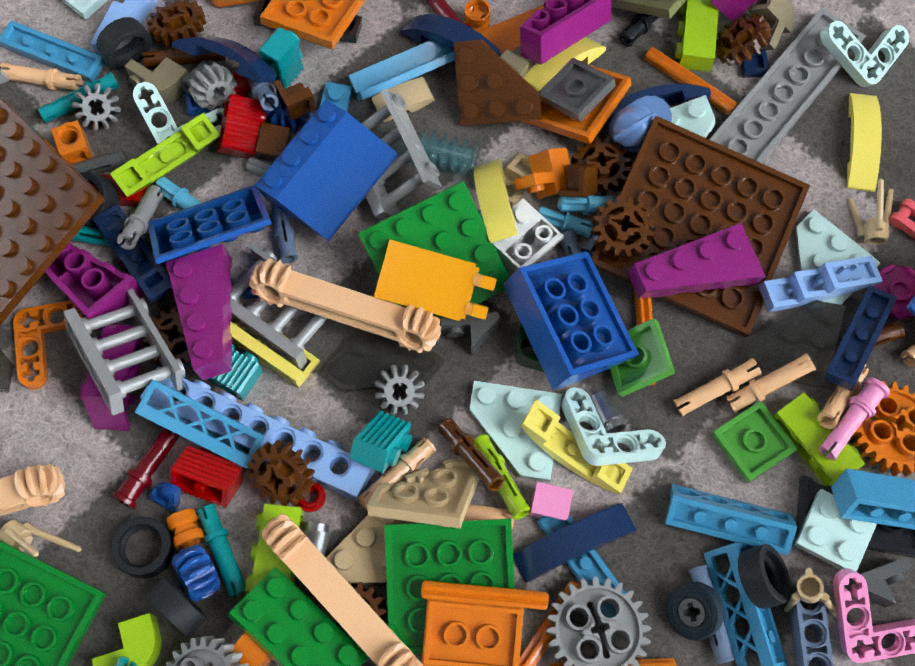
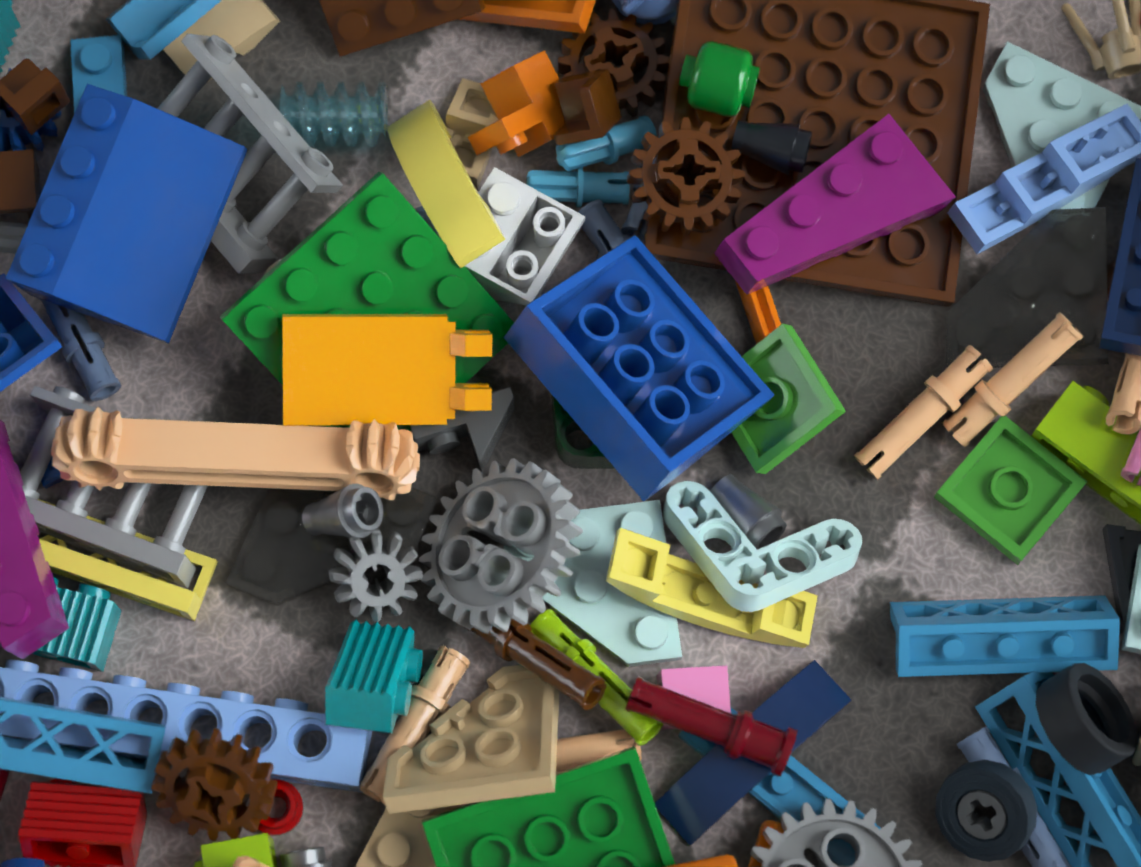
camera: 15 degrees left, 5 degrees up
(393, 351) = (348, 513): none -> flat silver cone
(455, 408) = (487, 584): none -> light grey gear
(568, 527) = (737, 733): none -> dark red pin
(655, 182) = (720, 78): none -> green head
(674, 224) = (774, 144): none -> black cone

